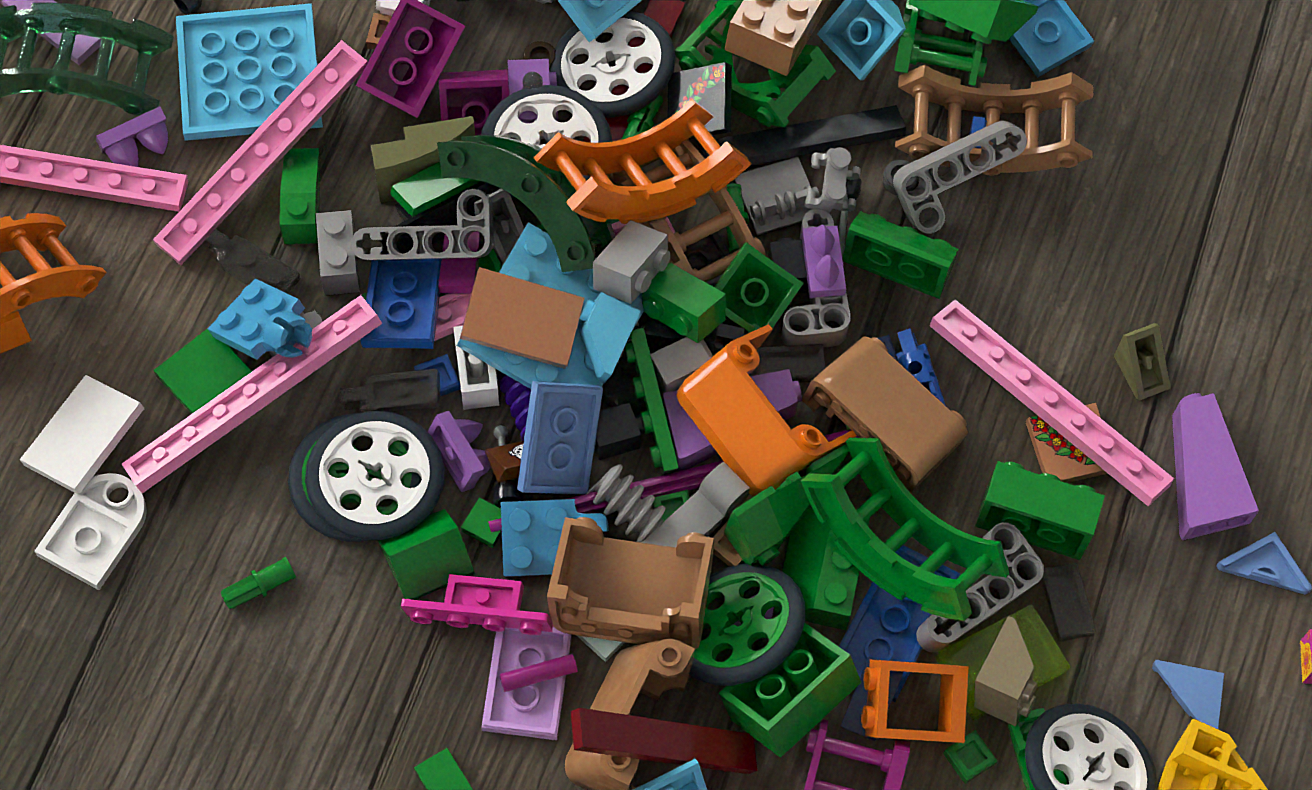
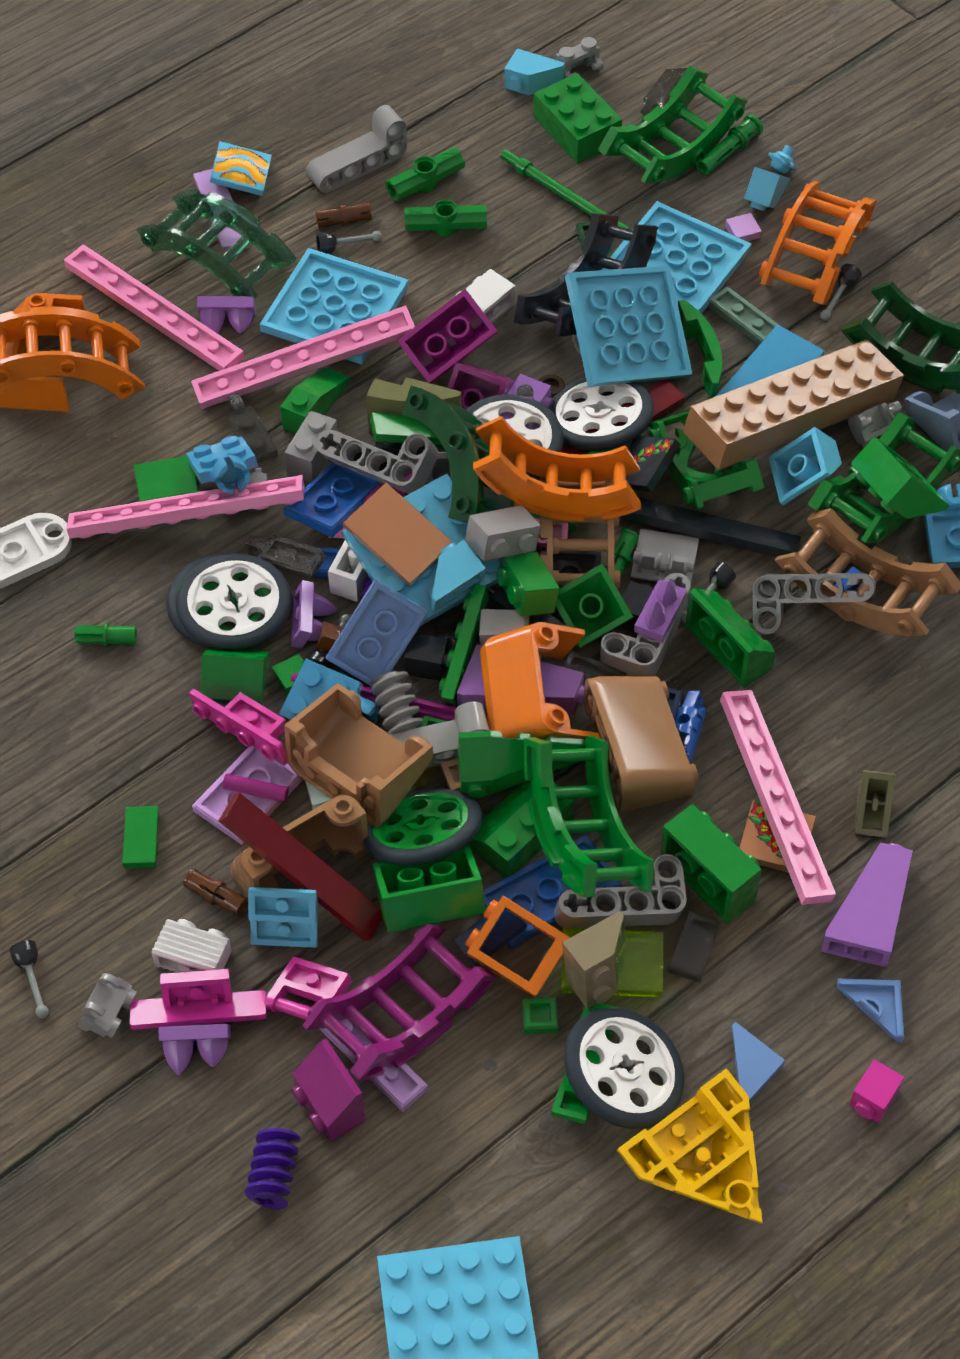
camera: 35 degrees right, 10 degrees down
(82, 434) = (57, 482): white tile -> none
(834, 183) = (705, 558): light grey piece -> none

